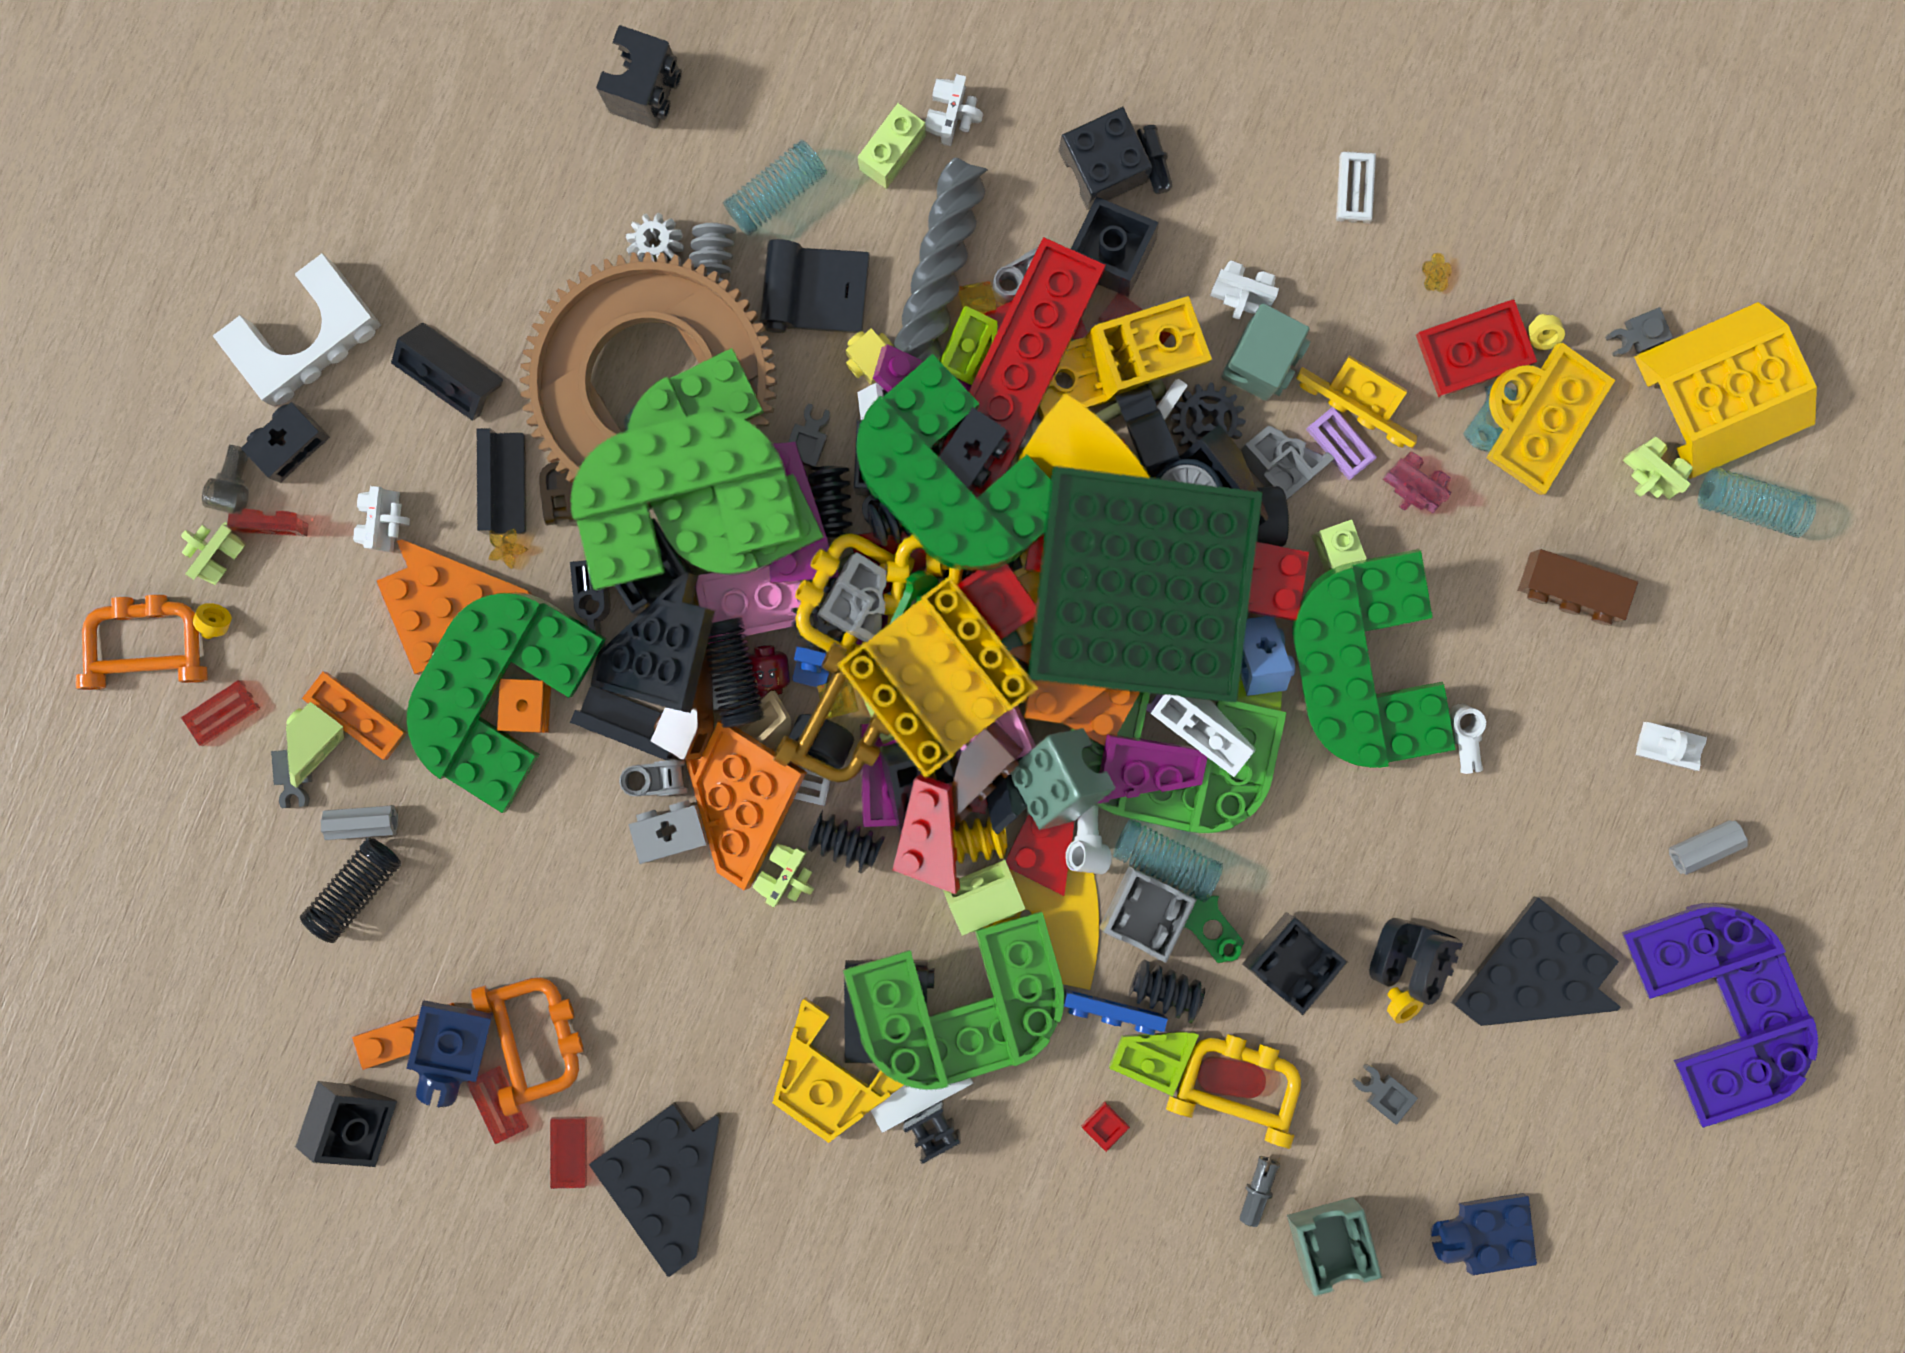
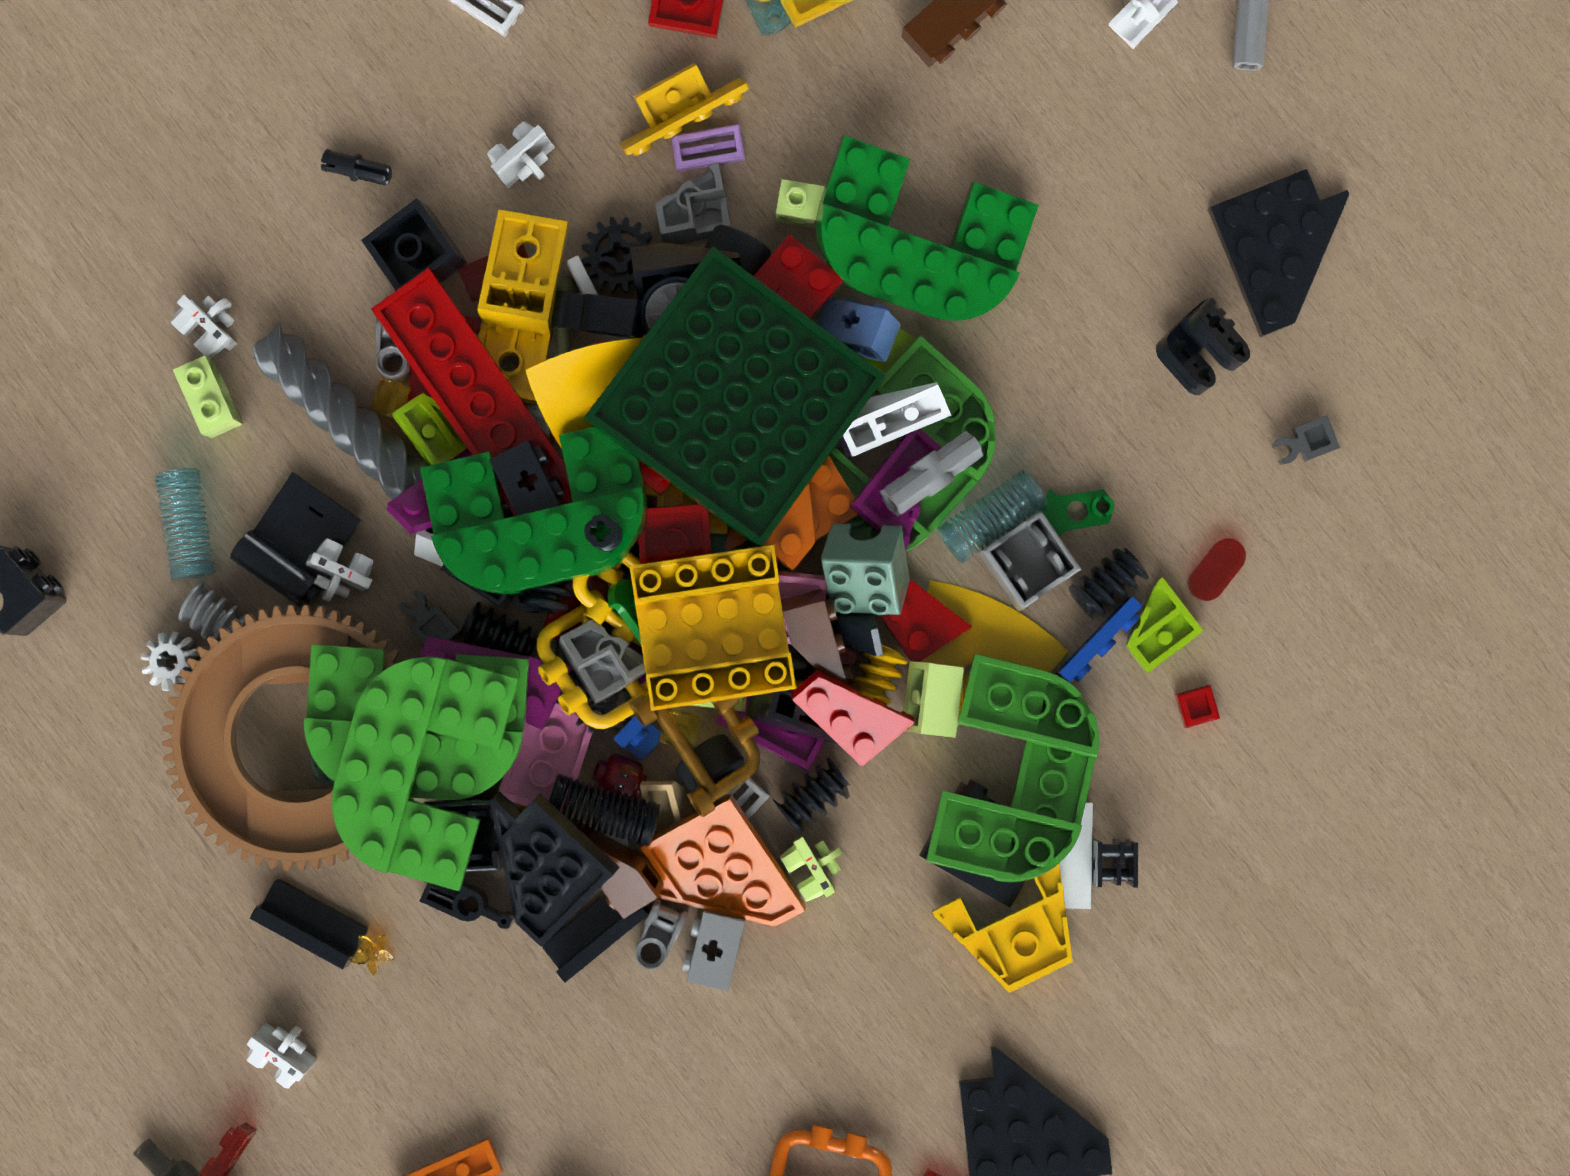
camera: 60 degrees left, 0 degrees up
(302, 439) = (165, 1083): black brick -> none
(344, 324) = (83, 986): white arch -> none
(430, 596) = (398, 1034): orange wing -> none
(445, 370) = (178, 917): black panel -> none
(464, 674) = (464, 1050): green plate -> none
(524, 706) = (525, 1016): orange piece -> none
(554, 486) = (342, 874): dark brown plate -> none
(809, 321) = (325, 562): none -> white hips
(864, 353) = (383, 528): light yellow brick -> none
(960, 548) = (610, 541): none -> black bush
(1087, 851) = (943, 583): white pin -> none
(1105, 157) = (329, 211): black piece -> none
(1174, 788) = (931, 473): none -> light grey piece
(1259, 1192) = (1331, 603): dark grey axle -> none
(1265, 1057) = (1215, 529): yellow bar -> none
(1266, 353) = (589, 169): sand green piece -> none
(1294, 963) = (1146, 455): black piece -> none
(1334, 1245) = (1413, 563): sand green piece -> none
(1402, 1005) = (1238, 382): yellow tile -> none
(1416, 486) = (784, 104): clear pink hips -> none
(1469, 737) = (1034, 188): white pin -> none
(1488, 1235) = (1482, 422): dark blue plate -> none
(1759, 992) = (1402, 63): dark purple plate -> none

